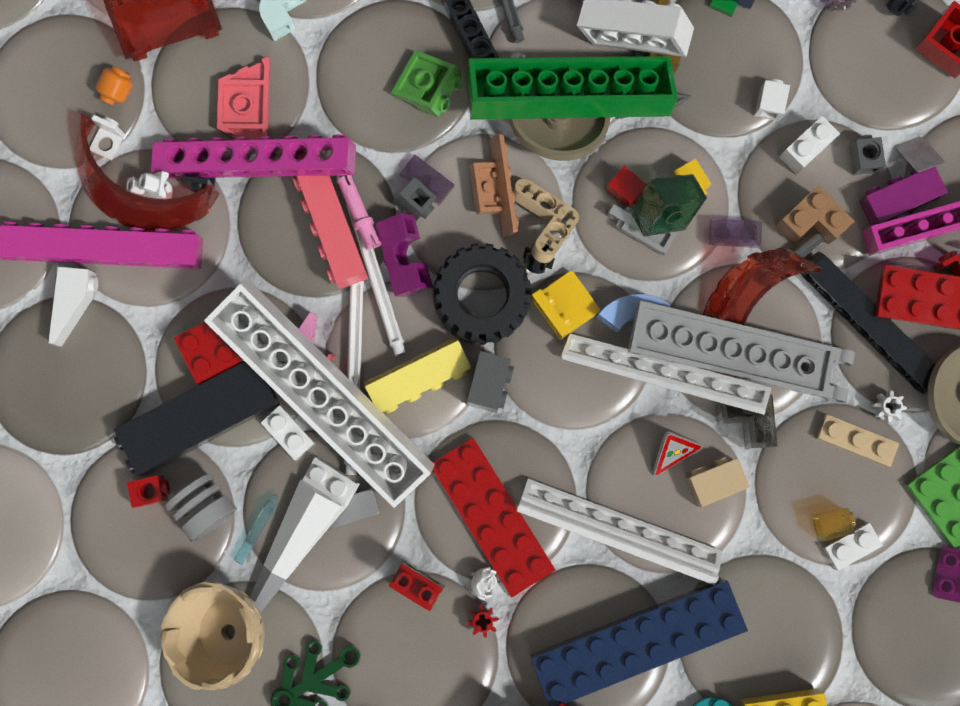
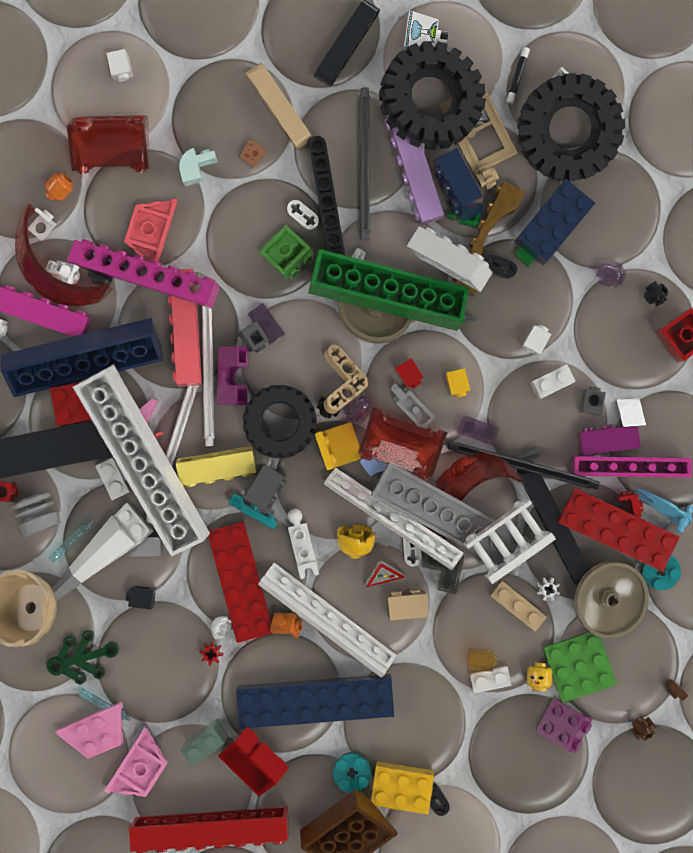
camera: 20 degrees right, 5 degrees up
(196, 288) = (81, 357): none -> dark blue brick
(363, 222) = (208, 335): bright pink pin -> none
(369, 575) = (141, 597): none -> black brick
(416, 586) = (170, 617): red hips -> none
(435, 28) = (305, 212): none -> white beam
(481, 421) = (252, 511): none -> teal hinge
(493, 186) = (311, 344): nougat bracket -> none
(556, 443) = (301, 543): none -> white plate
(568, 553) = (286, 624): none -> orange bracket
(576, 251) = (357, 409): none -> head
(626, 418) = (356, 540): none -> yellow cylinder
(648, 275) = (402, 444): none -> clear red windscreen
(668, 204) = (433, 397): clear green brick -> none
(694, 414) = (407, 552): none -> white beam
(699, 20) = (501, 262): none -> black beam
(820, 213) = (539, 431): medium nougat brick -> none
(825, 256) = (529, 466): none -> black piece
(847, 362) = (526, 549): none -> white fence
(916, 523) = (539, 677): none -> yellow head

